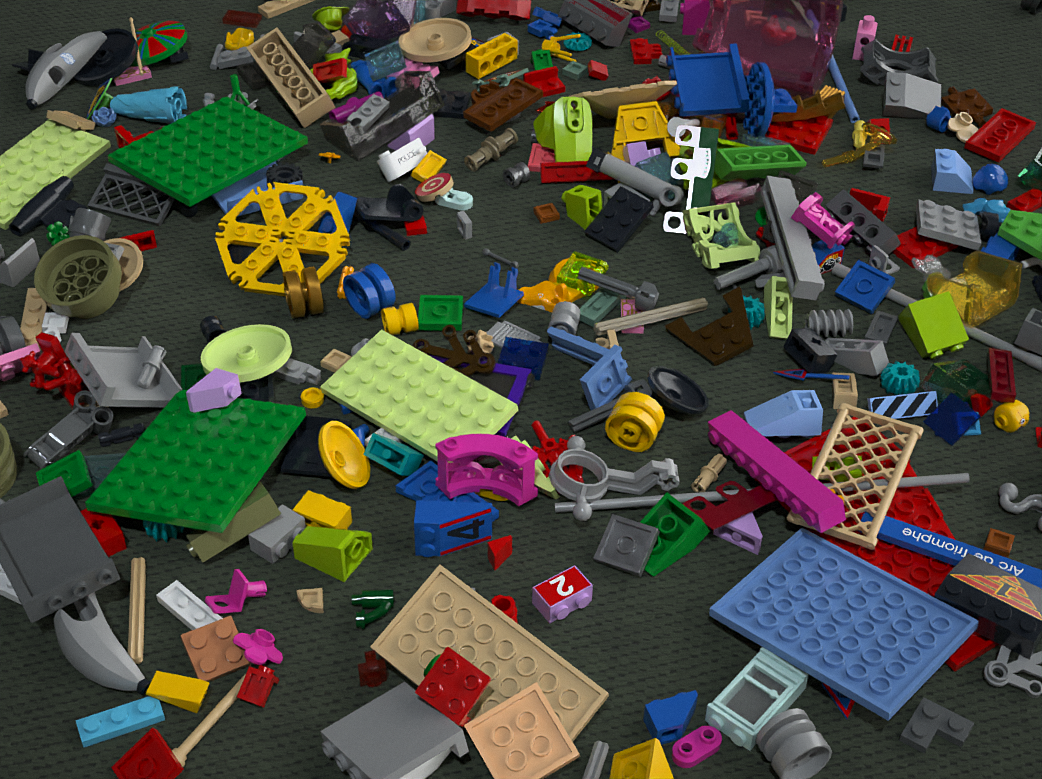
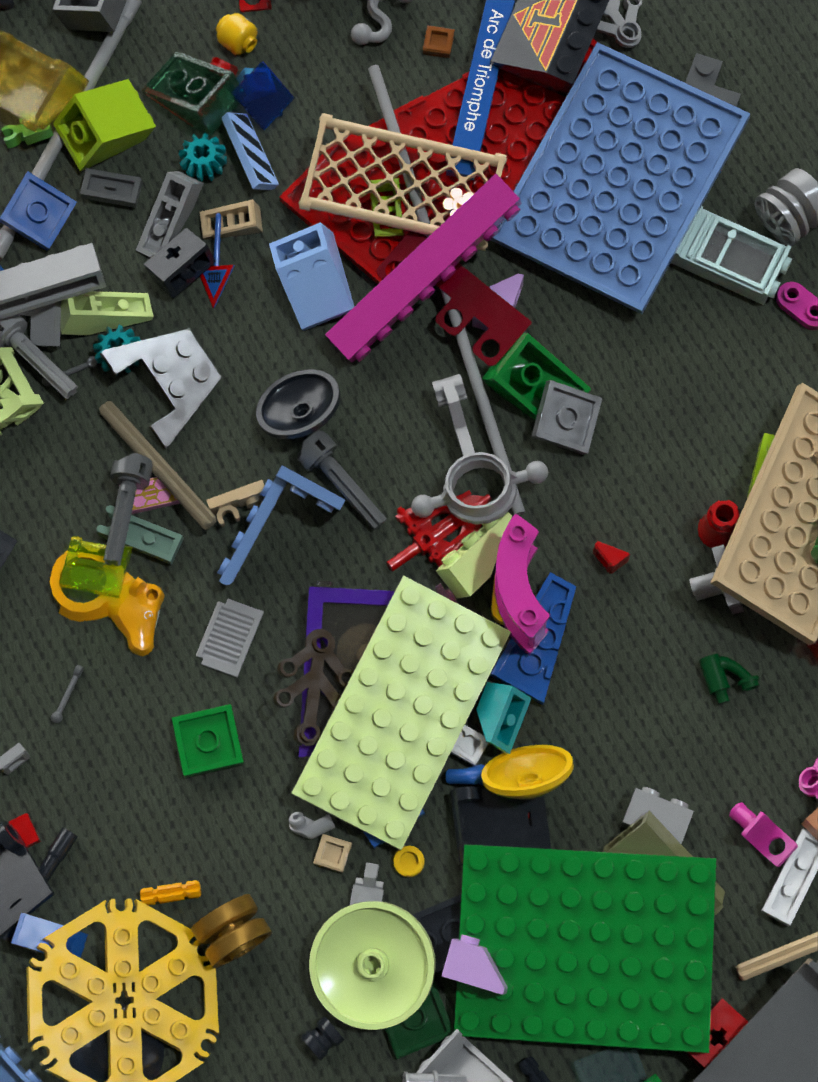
camera: 100 degrees left, 30 degrees up
(312, 599) = (733, 750): tan tile -> none
(323, 512) = (614, 774): yellow brick -> none
(332, 549) = (664, 743): lime slope -> none
(369, 290) = (206, 840): blue wheel -> none
(399, 319) = (240, 784): yellow wheel -> none
(450, 526) = (606, 619): blue slope -> none
(484, 341) = (264, 668): tan gear -> none
(493, 298) = (163, 676): blue plate -> none
(524, 354) = (268, 613): clear blue plate -> none
(562, 594) = (653, 473): brick -> none
(565, 317) = (195, 571): light grey wheel -> none
(635, 421) = (378, 442): yellow wheel -> none
(670, 717) = (782, 331): blue slope -> none
(709, 473) = (419, 351): tan axle -> none
(829, 321) = (119, 247): light grey piece -> none
(1001, 375) = (175, 44): dark red plate -> none

